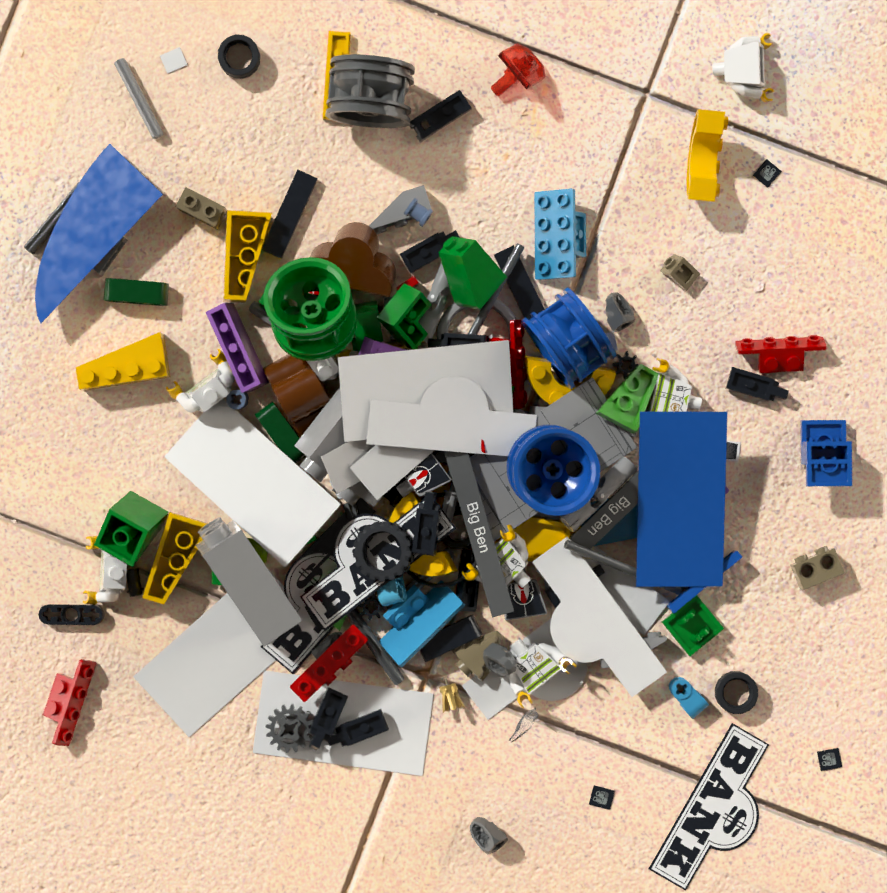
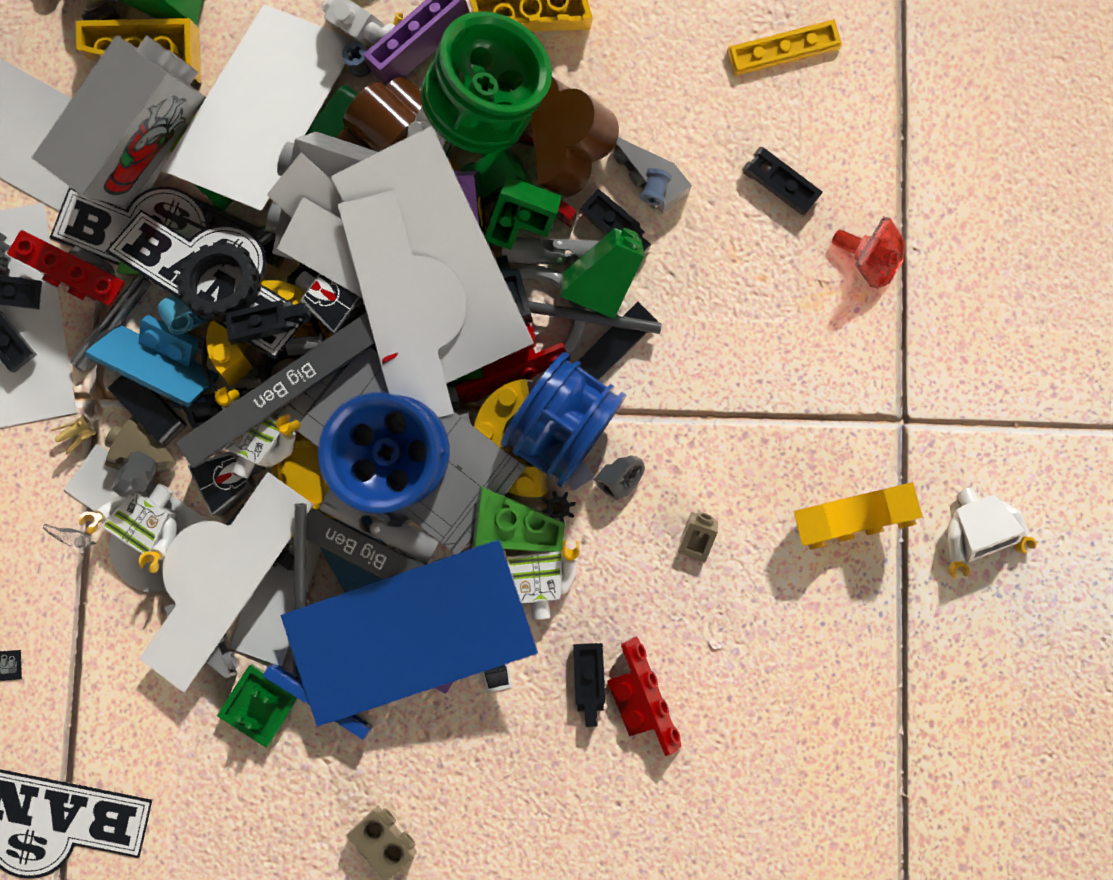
camera: 75 degrees right, 5 degrees down
(289, 214) = (600, 48): black tile -> none
(366, 610) = (150, 296): black gear -> none
(369, 91) = (782, 75): dark grey wheel -> none
(558, 234) = (691, 371): dark azure bracket -> none
(689, 699) = (163, 734): dark azure piece -> none
(753, 692) = (172, 808): black tyre -> none
(767, 173) = (860, 604): black sticker -> none
(826, 453) = (531, 803): blue bracket -> none

